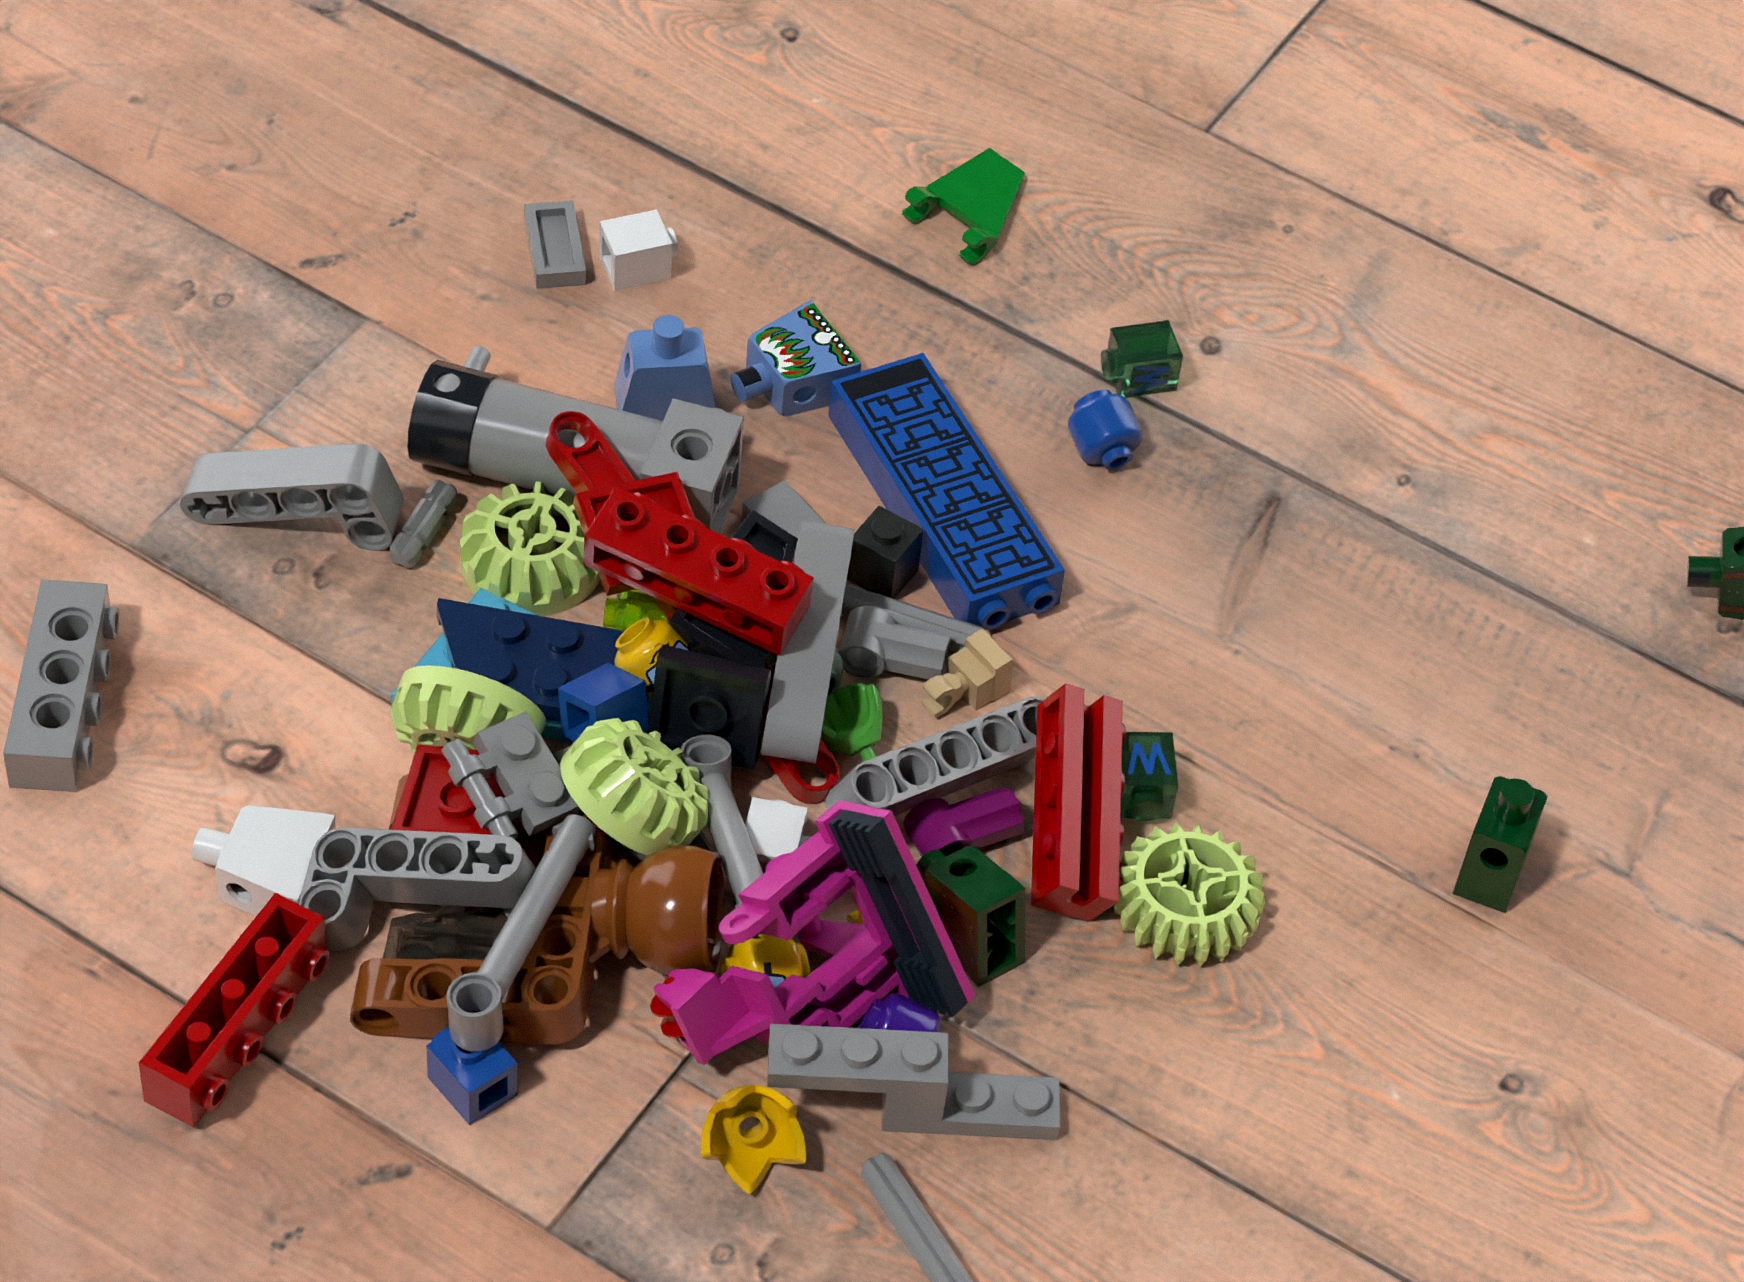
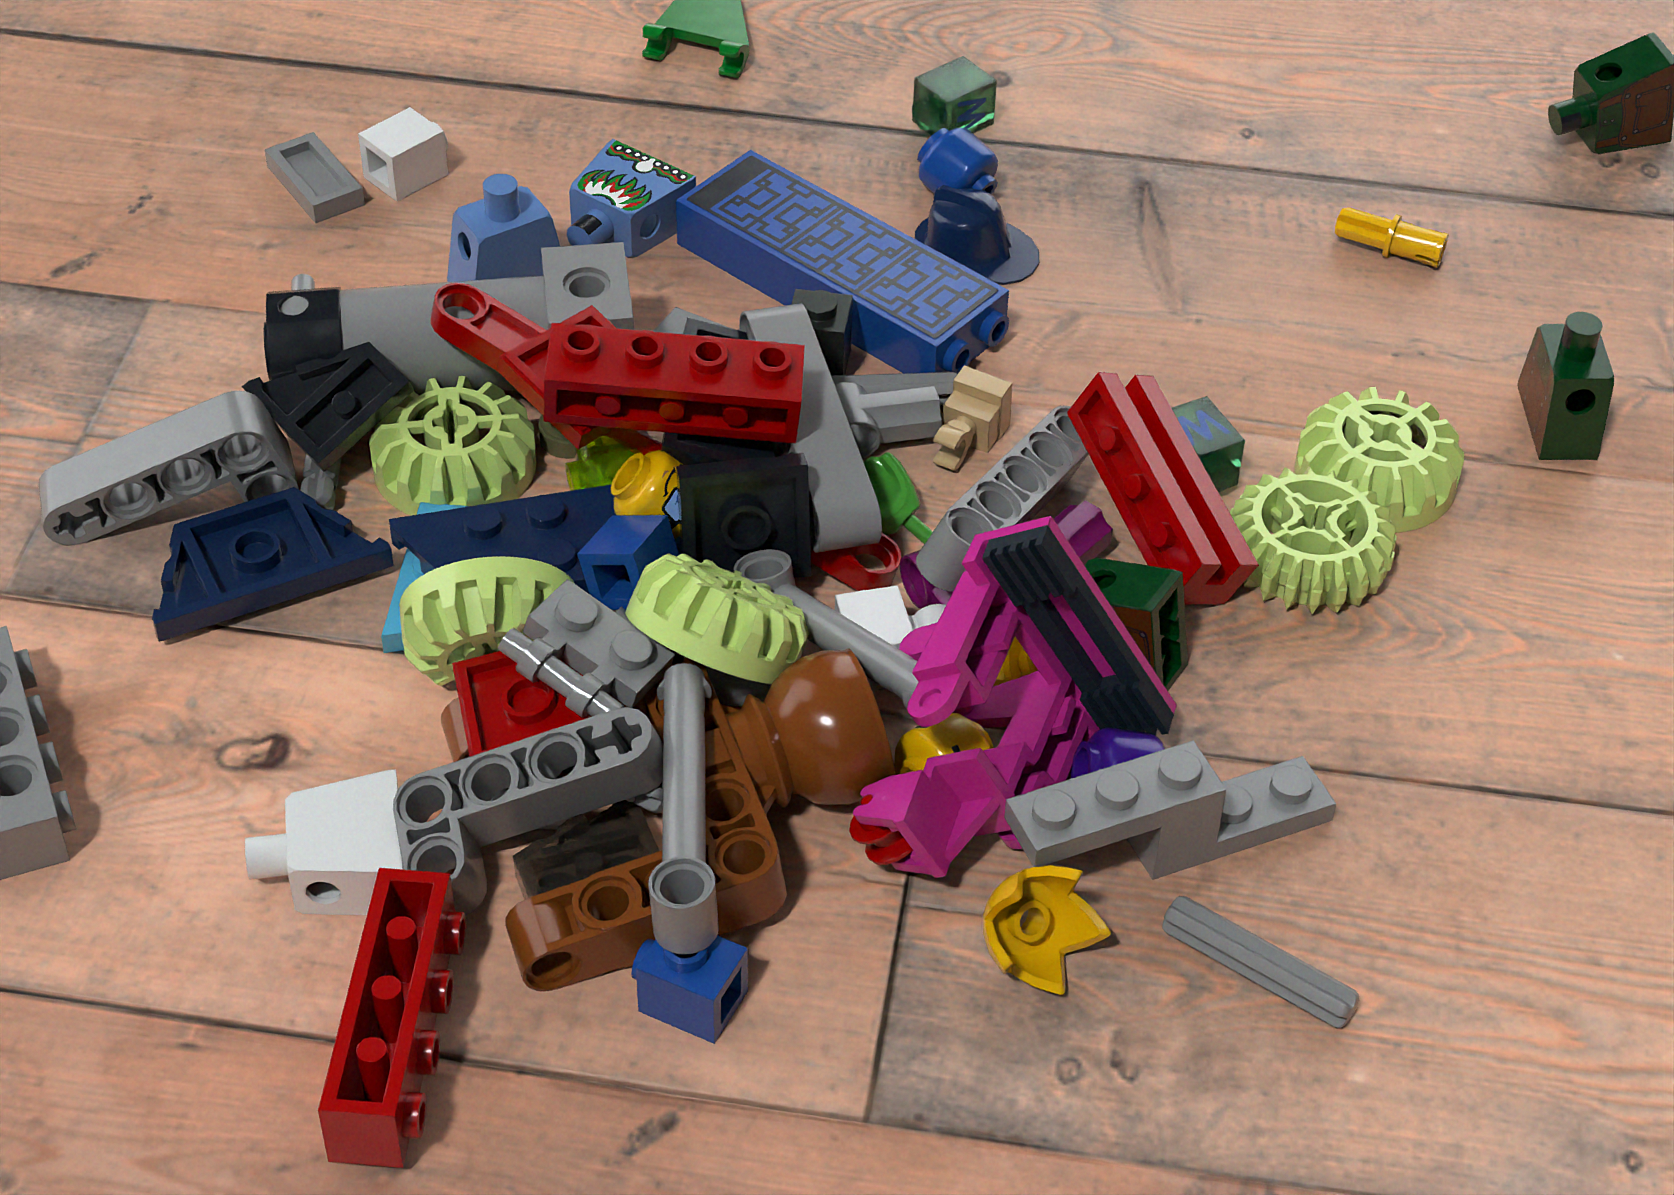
camera: 20 degrees left, 5 degrees down
(330, 590) = (258, 558): none -> dark blue wing
(444, 476) = (333, 400): none -> black wing
(1086, 505) = (974, 233): none -> dark blue piece
(1296, 867) = (1374, 445): none -> yellowish green gear
(1459, 633) = (1392, 236): none -> yellow axle

